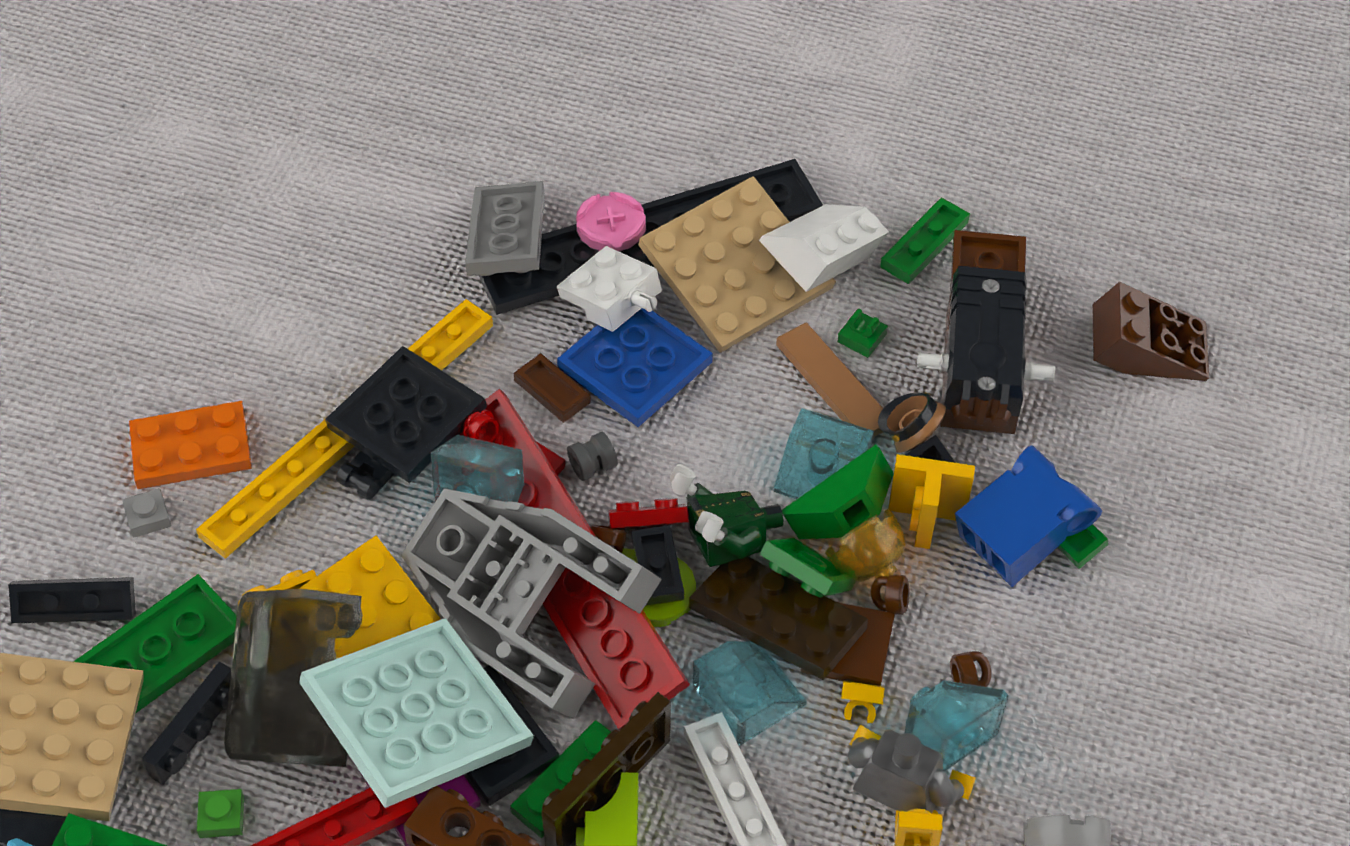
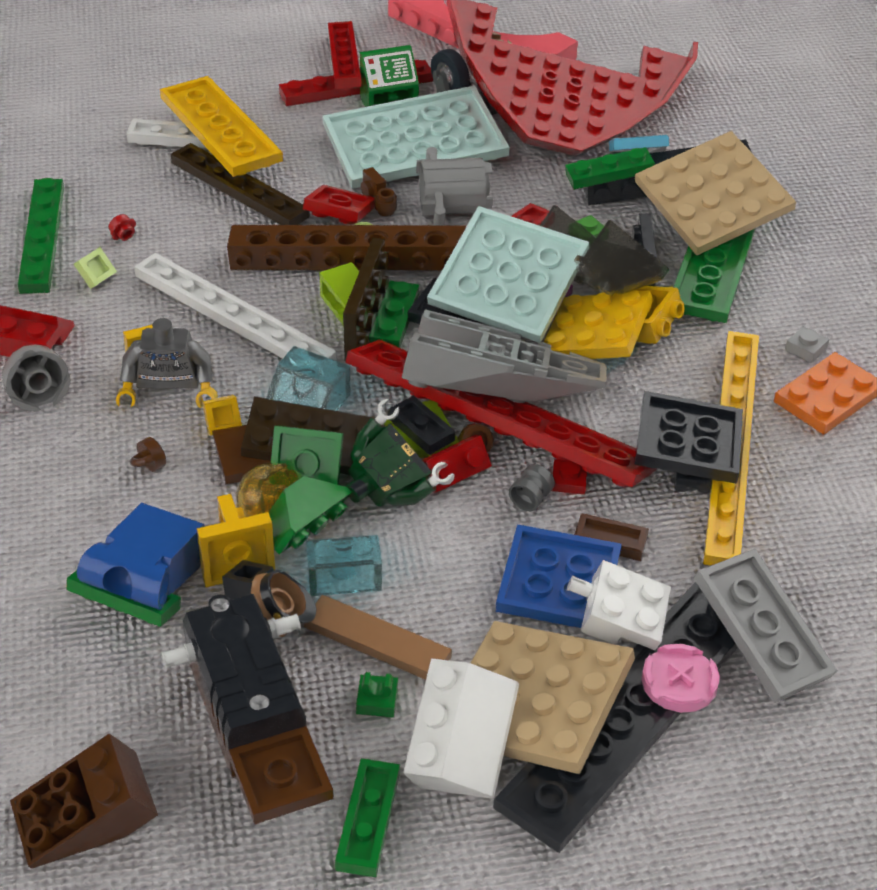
camera: 150 degrees right, 10 degrees down
(72, 600) = (788, 280): black plate -> none
(478, 469) = (595, 412): clear light blue slope -> none
(481, 426) = (624, 444): red plate -> none
(896, 593) = (228, 481): reddish brown tile -> none
(956, 718) = (143, 402): clear light blue slope -> none

